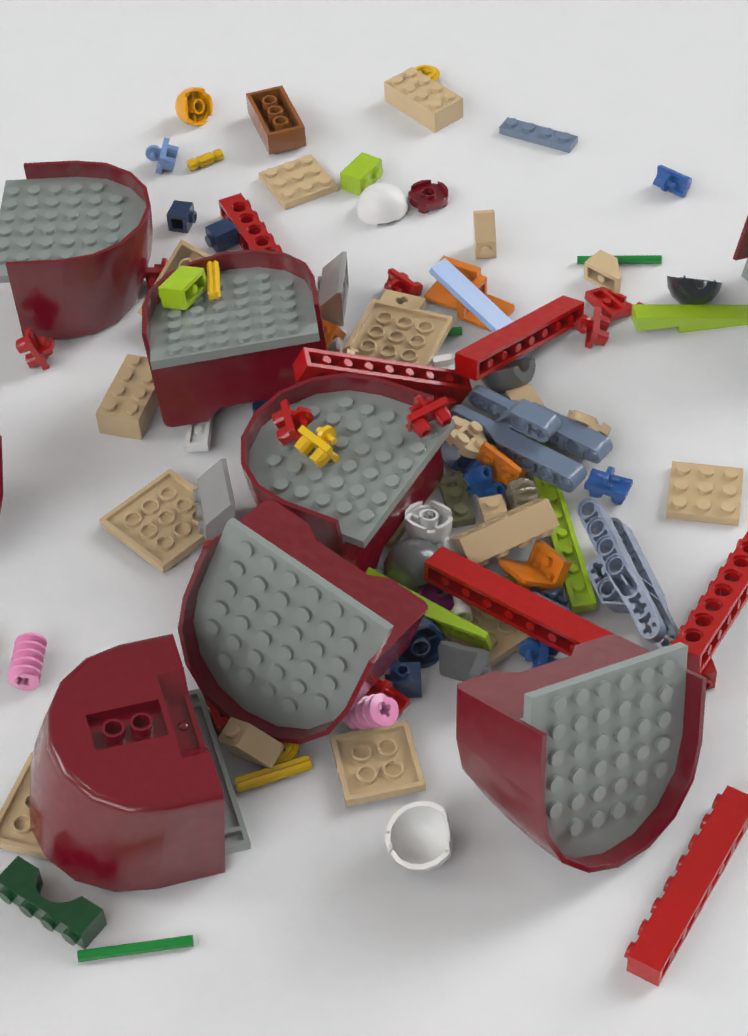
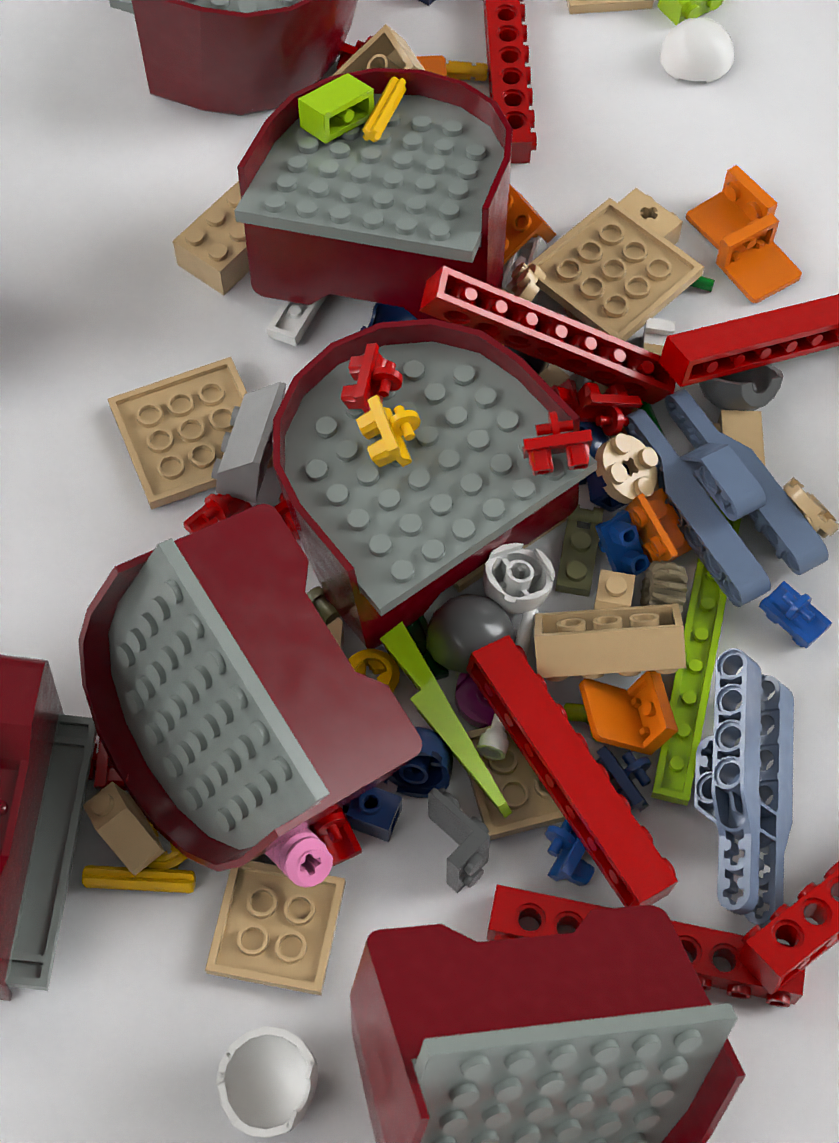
camera: 20 degrees right, 15 degrees up
(39, 348) = (152, 115): red hips -> none
(221, 235) = (463, 26): dark blue brick -> none
(334, 290) = (566, 166): light grey slope -> none
(401, 283) = (661, 186): red hips -> none
(428, 196) = (775, 69): dark red plate -> none
(470, 296) = (741, 245): light blue tile -> none
(484, 234) = (810, 149): tan slope -> none

